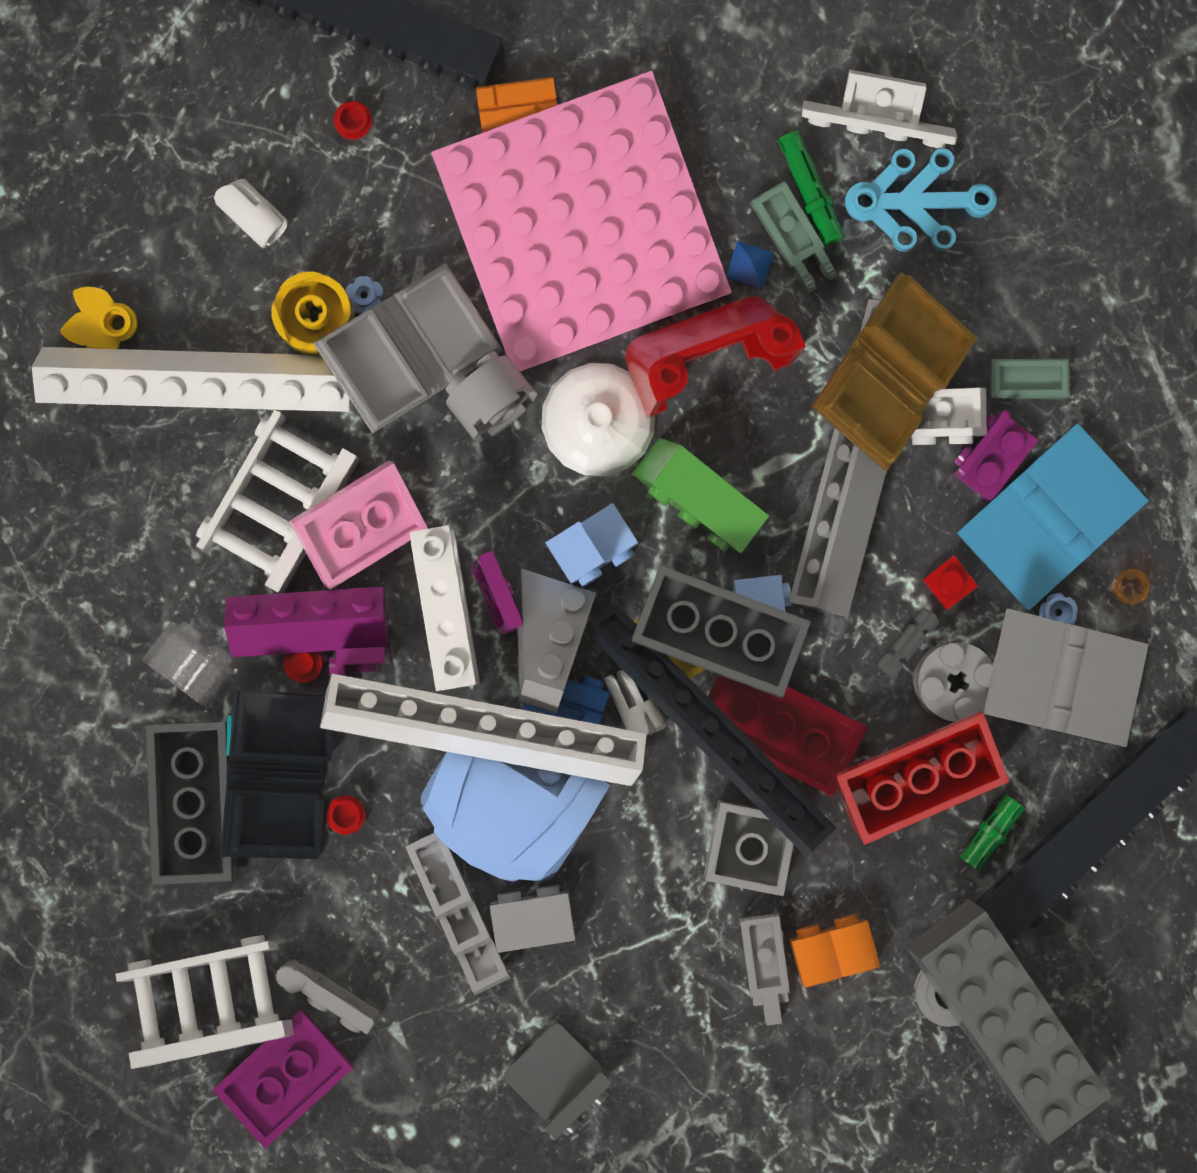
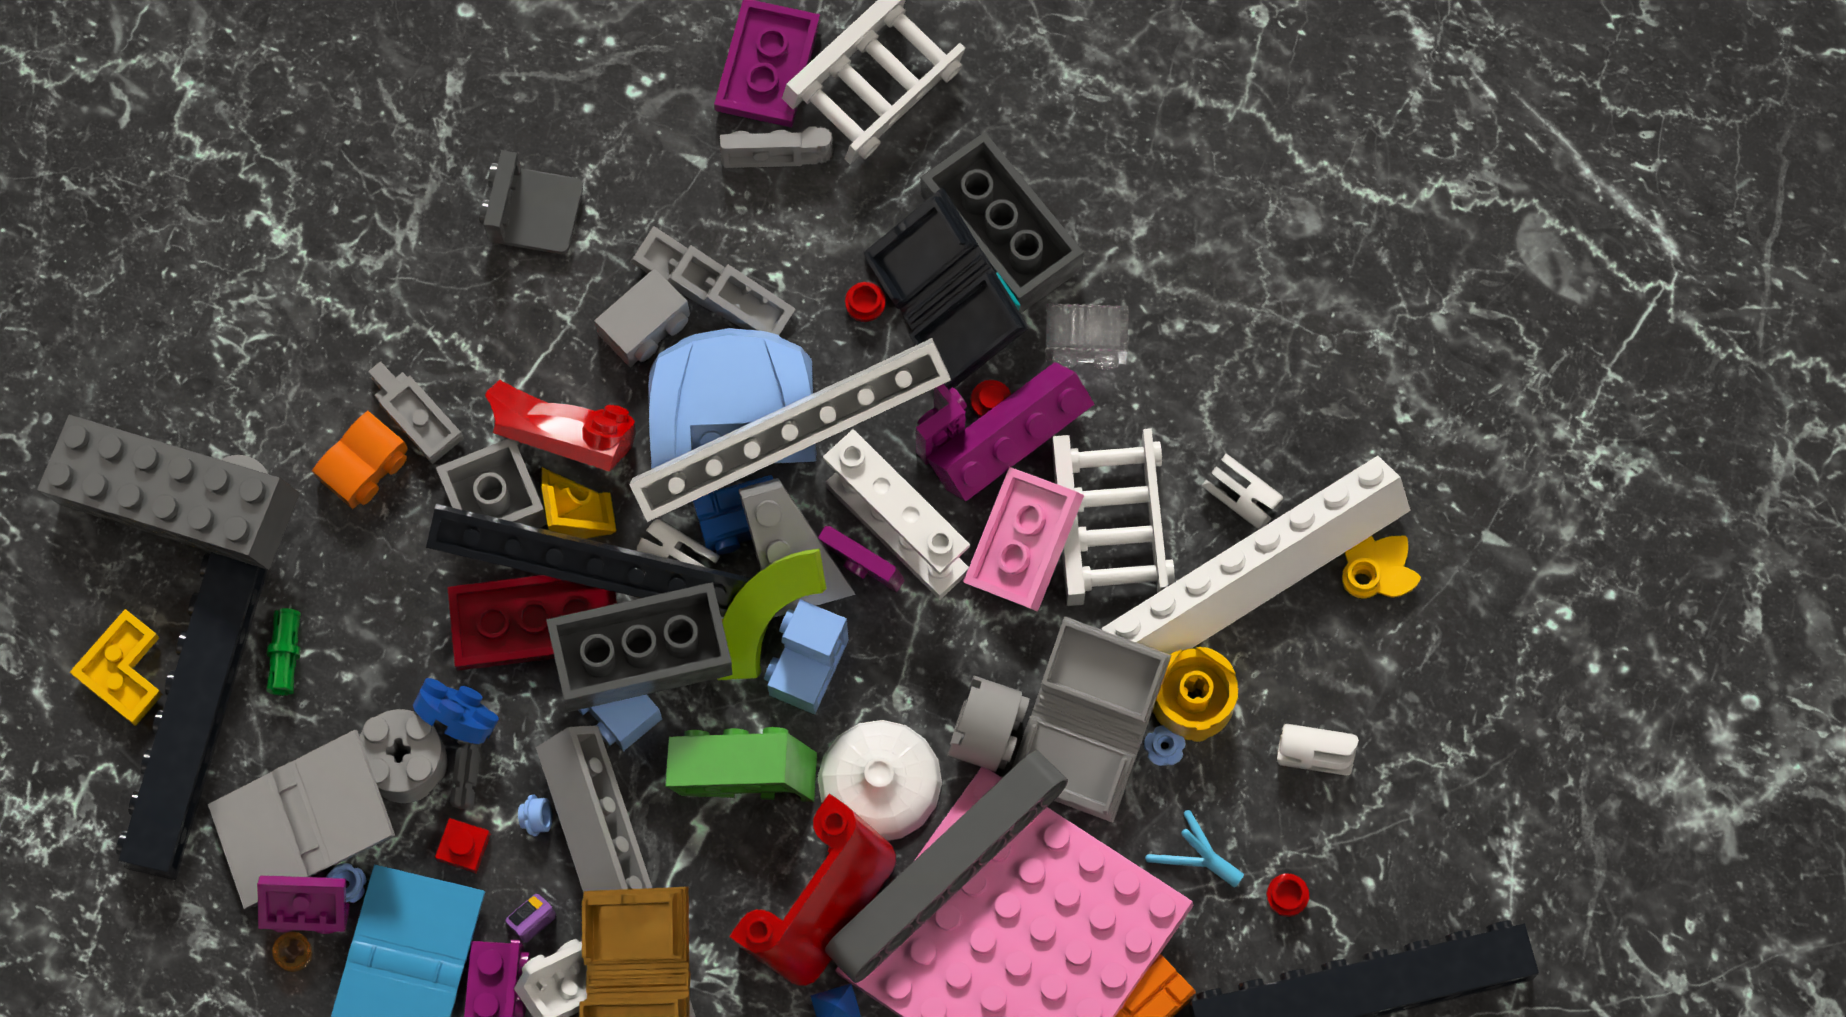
camera: 145 degrees right, 15 degrees down
(157, 439) = (1247, 503): none -> white arm
(392, 191) = (1201, 845): none -> medium azure plant
(595, 607) = (760, 600): none -> lime tile
(596, 305) = (946, 866): none -> dark grey beam
(662, 864) = (563, 429): none -> red slope
(689, 799) = (575, 508): none -> yellow slope
(880, 567) = (535, 815): none -> light blue plate
(892, 686) = (457, 709): none -> blue plate
(921, 778) = (375, 646): red slope -> none
(934, 491) = (531, 918): none -> medium lavender slope
(1105, 611) = (302, 904): none -> magenta bracket
(1138, 906) = (110, 665): none -> yellow plate

